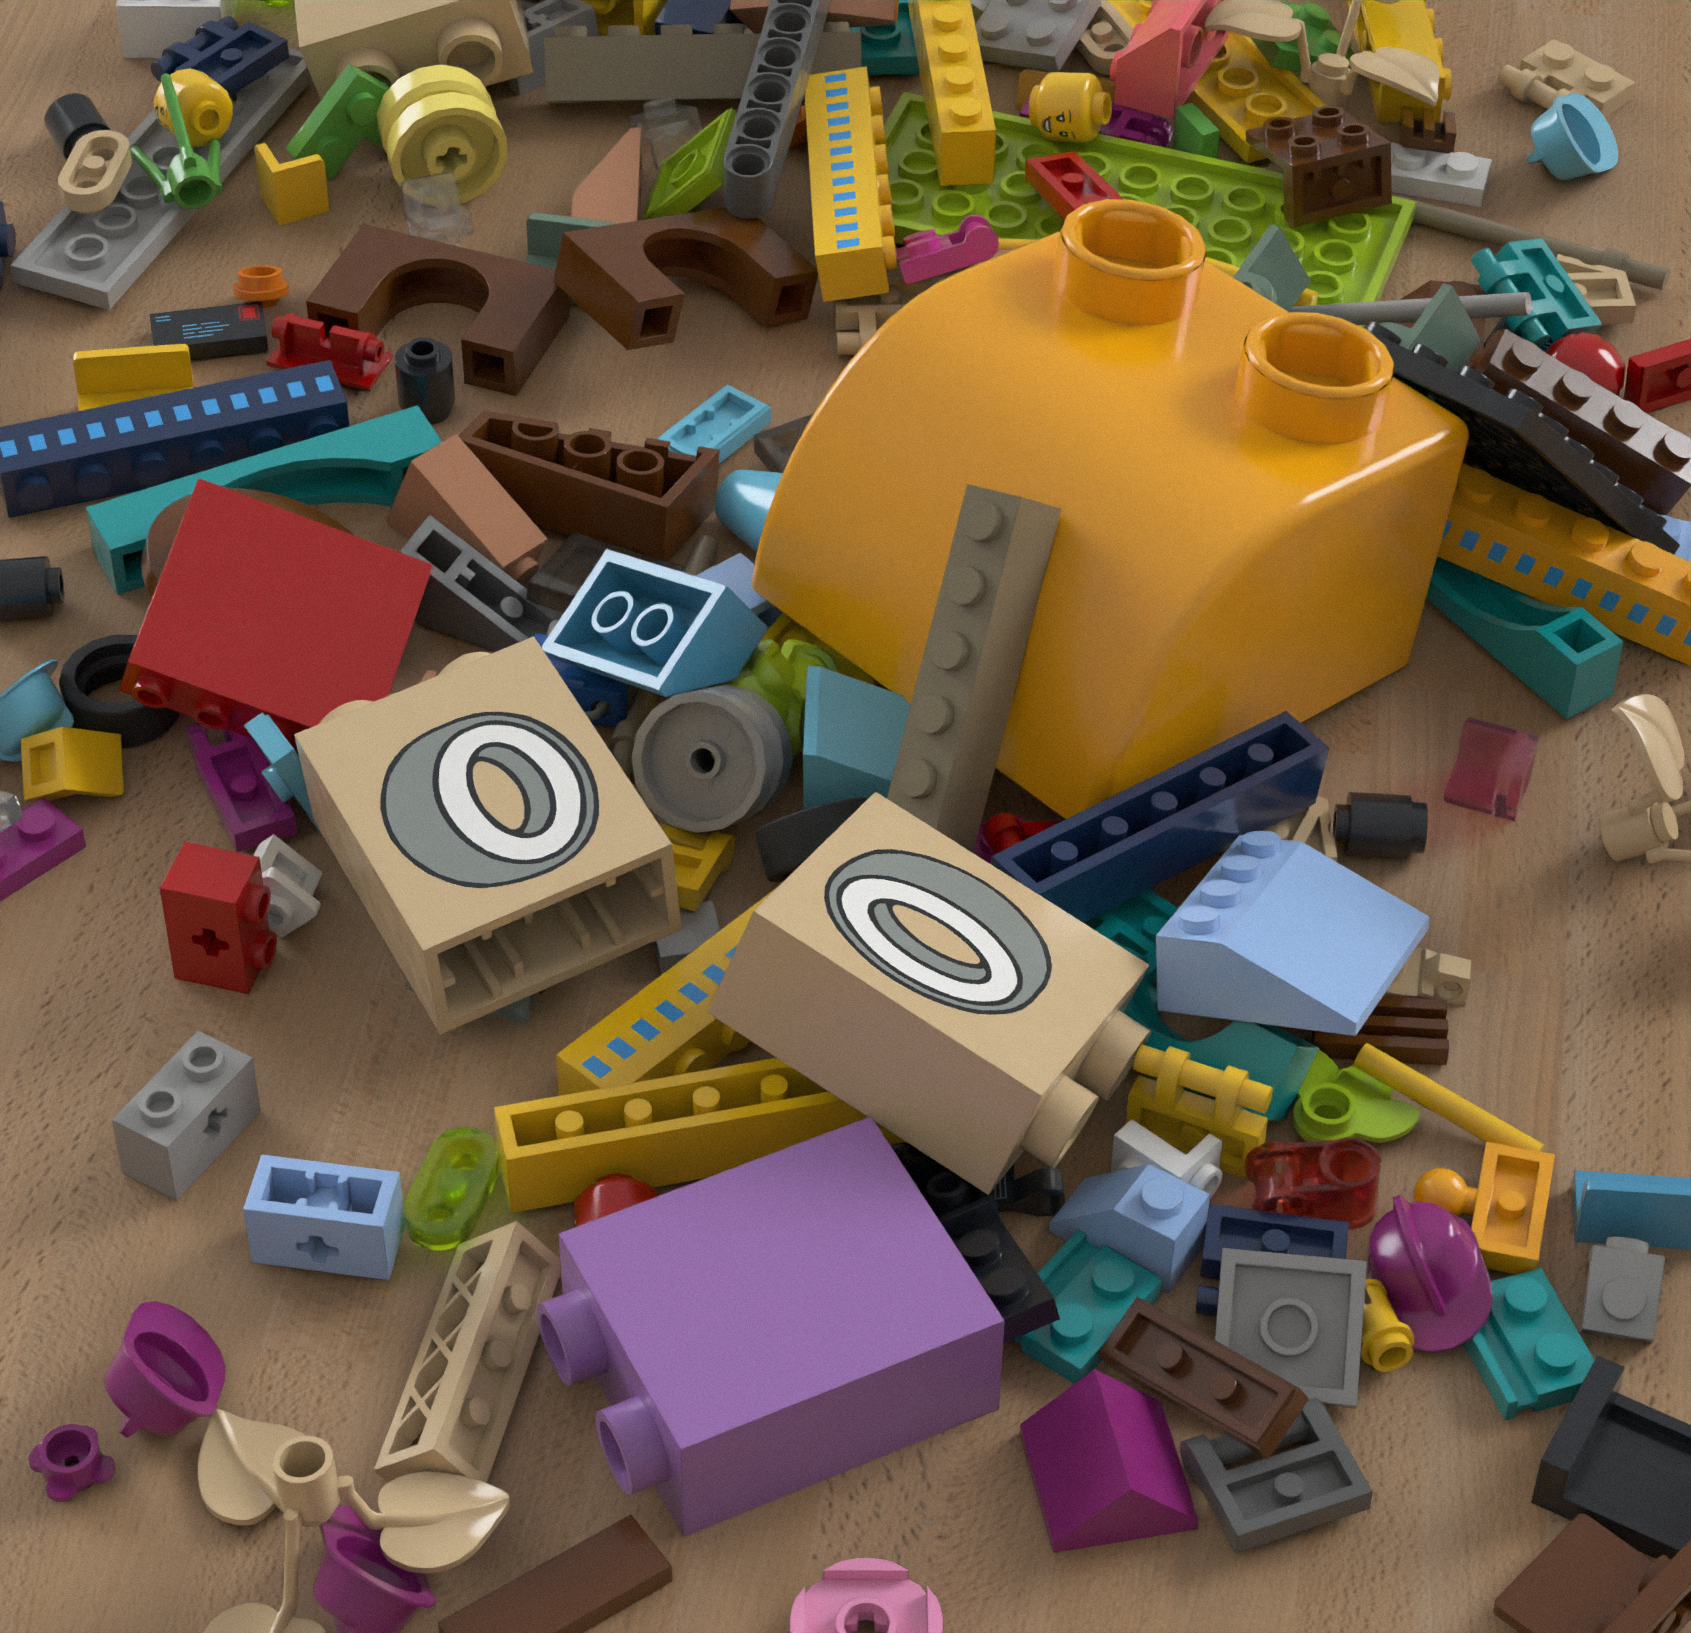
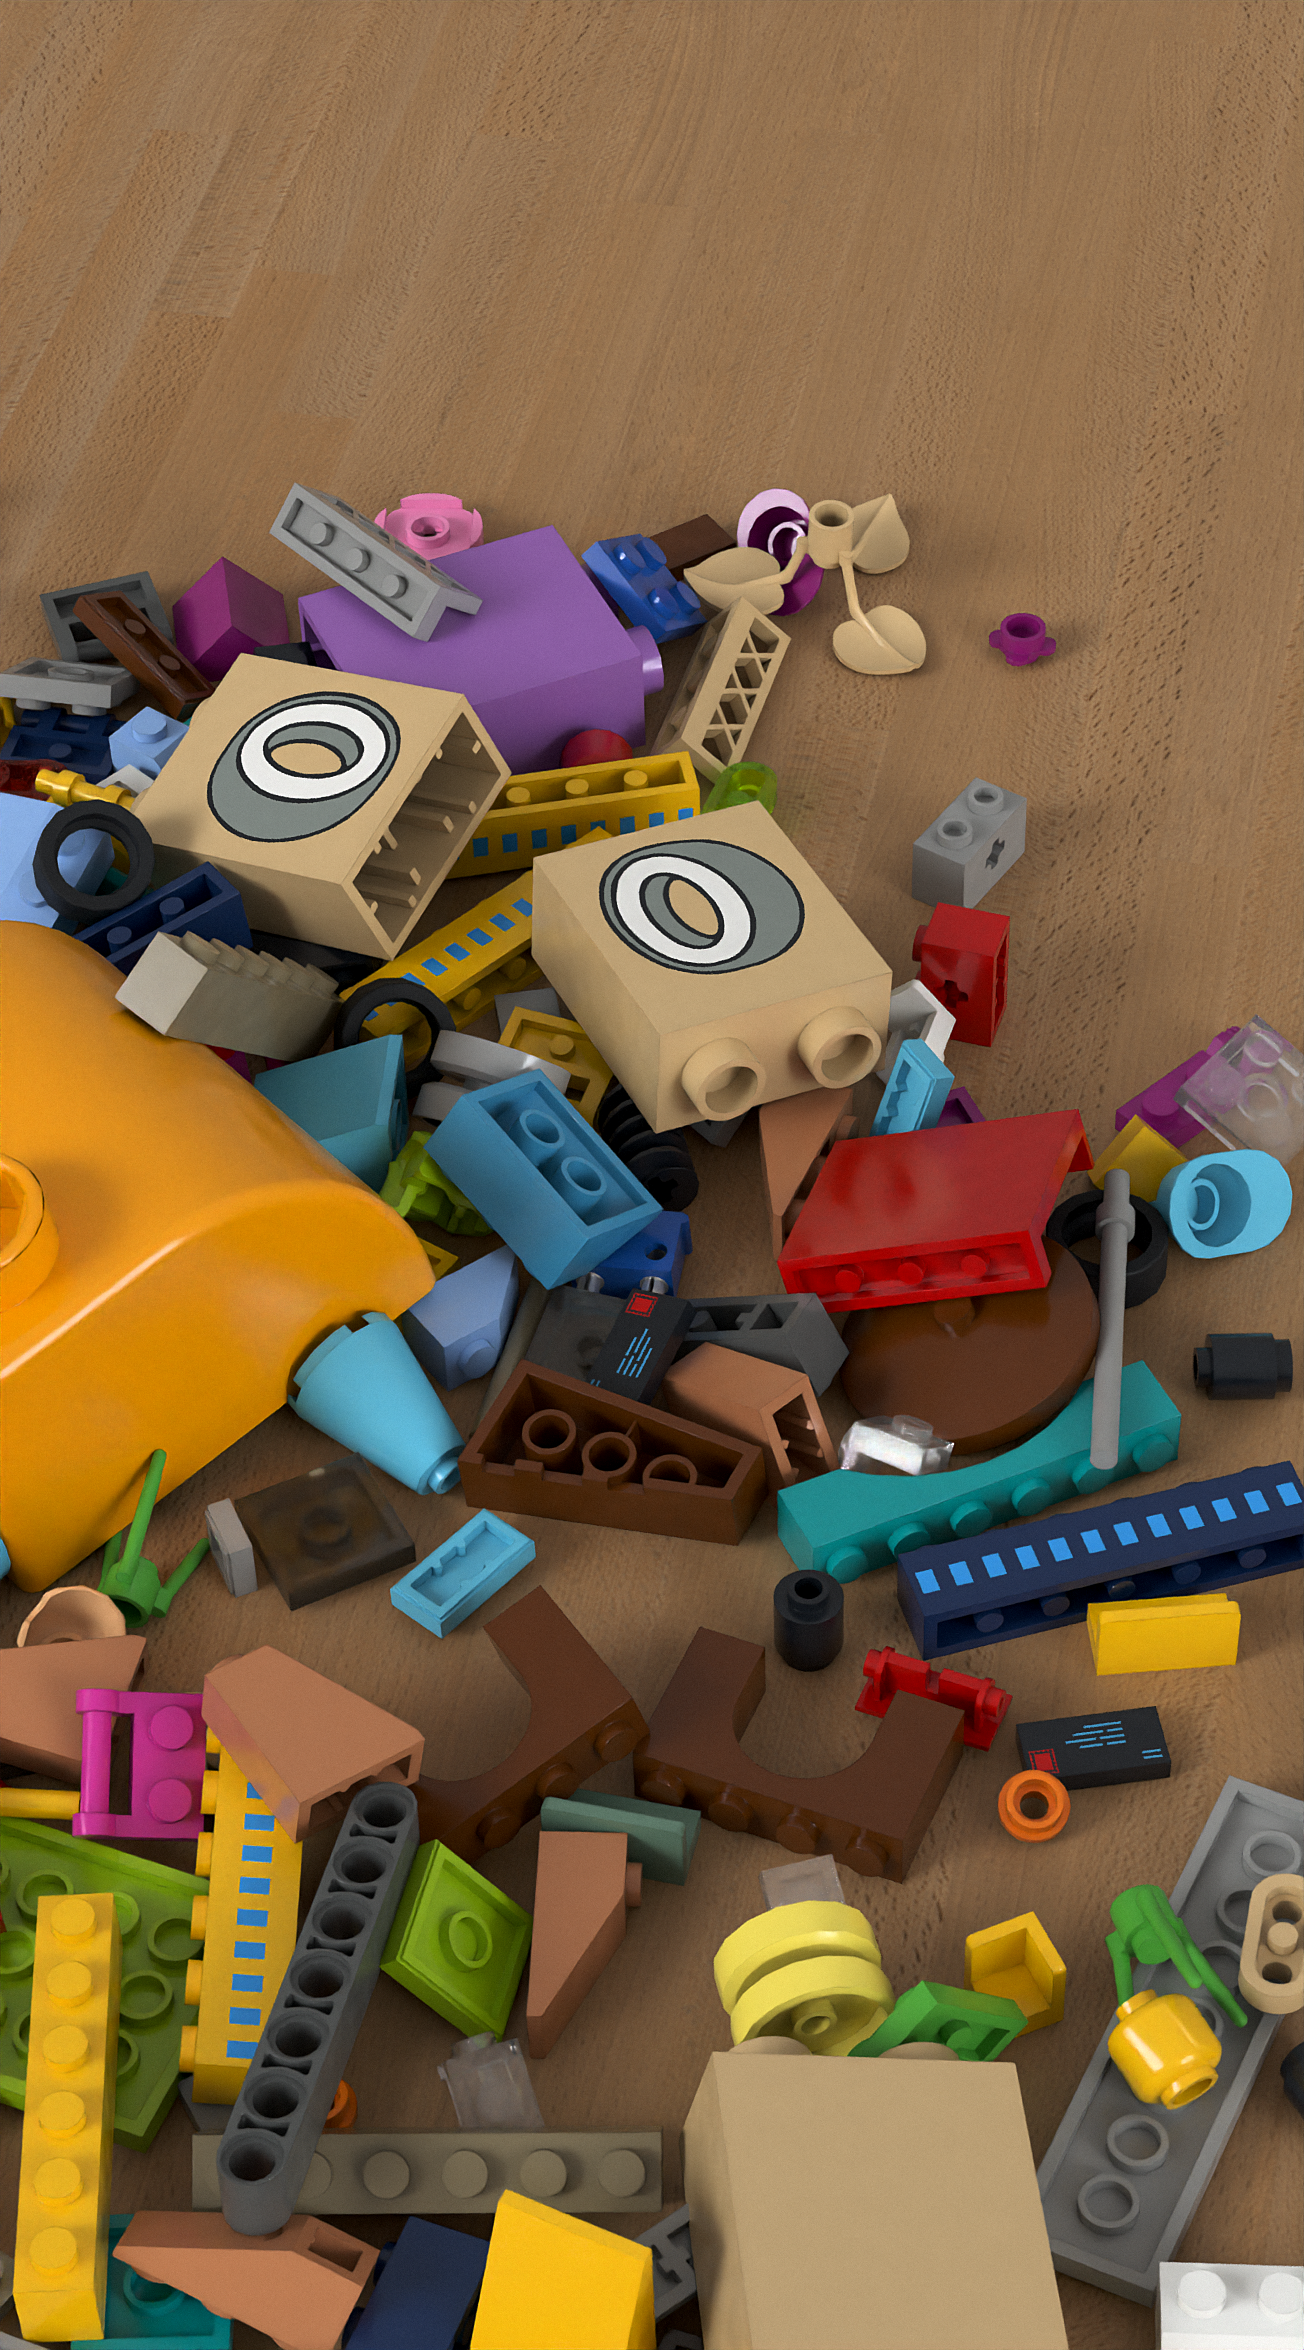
camera: 175 degrees left, 0 degrees up
(111, 653) = (1114, 1229): none -> light grey bar
(164, 1371) = (954, 667): magenta piece -> none
(225, 53) = (1124, 2164): dark blue plate -> none
(324, 1217) = (840, 757): light blue brick -> none
(343, 490) = (898, 1442): none -> clear bracket
(561, 1439) = (644, 587): none -> blue plate
(564, 538) = (642, 1345): none -> black tile
(810, 194) = (304, 1738): none -> nougat slope
(922, 1319) = (369, 561): none -> light grey fence
(1158, 878) = (102, 817): none -> black tyre

